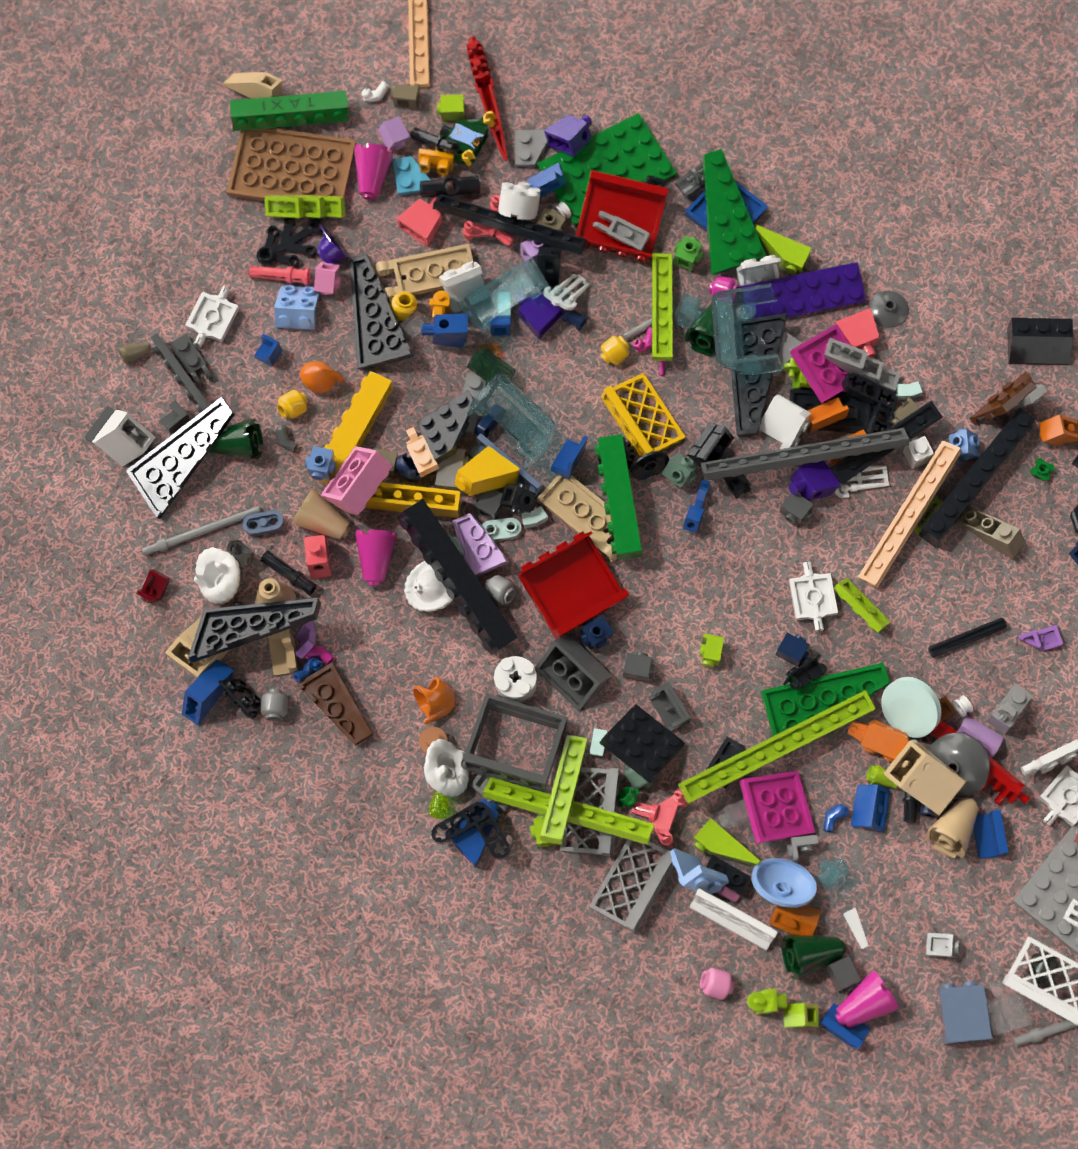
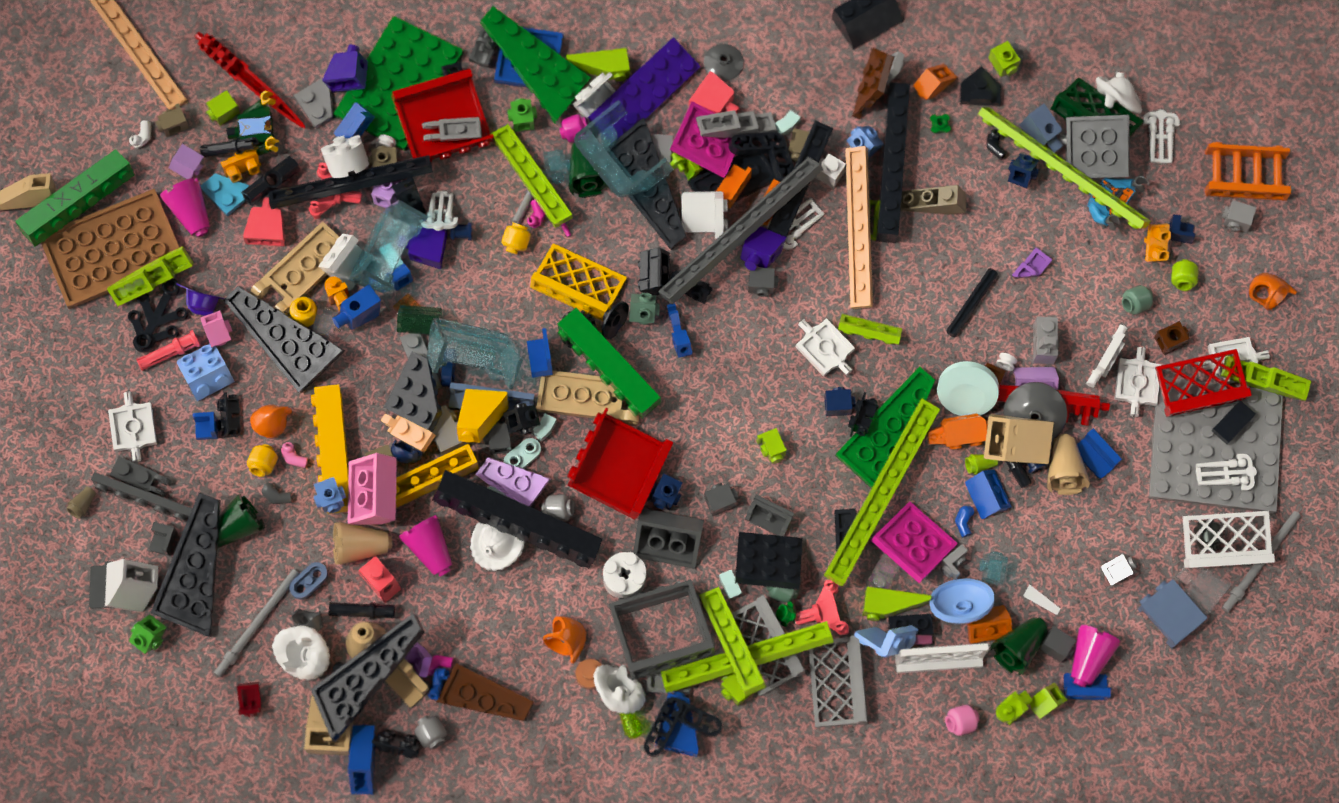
camera: 40 degrees left, 0 degrees up
(111, 485) = (147, 634): none -> bright green brick
(295, 346) = (227, 423): none -> black hinge
(317, 416) = (291, 456): none -> bright pink arm

